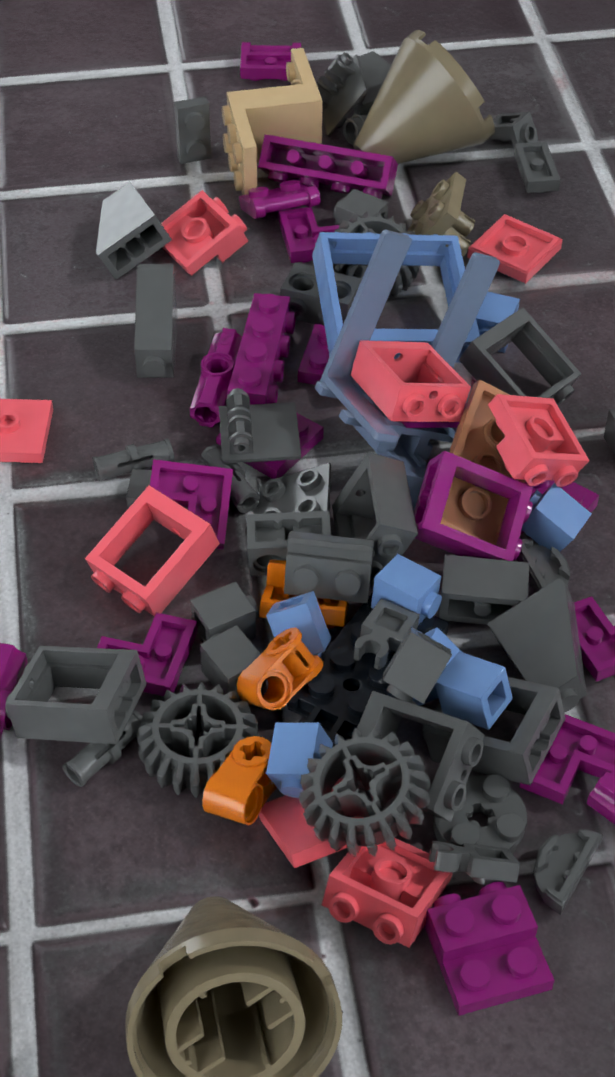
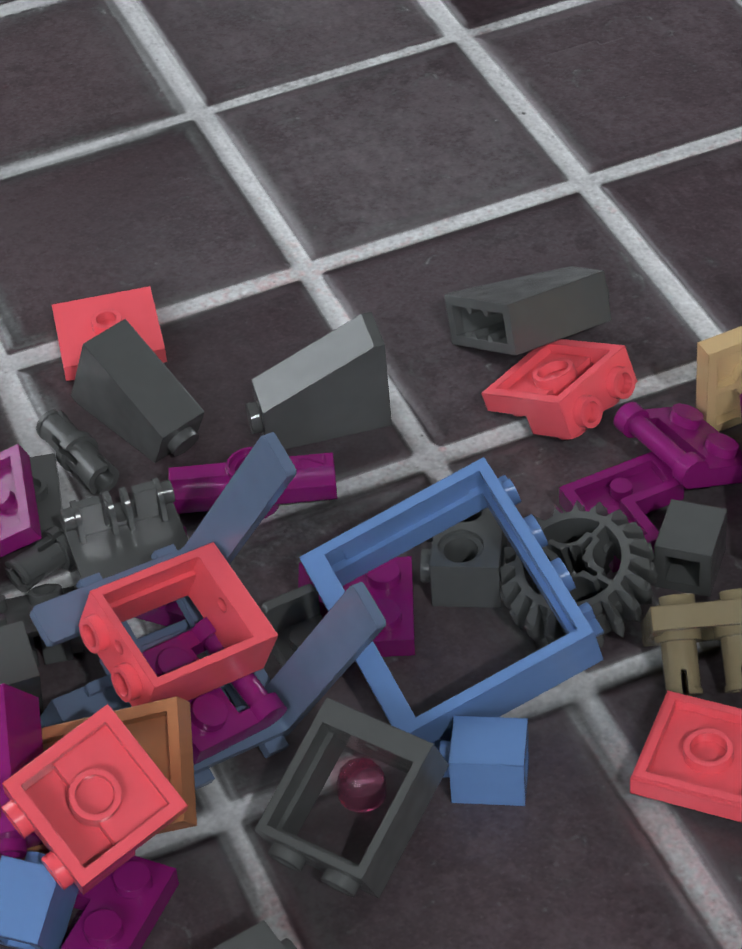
camera: 80 degrees right, 5 degrees down
(103, 414) = (135, 394): none -> dark grey slope
(263, 347) = (312, 508): magenta brick -> none

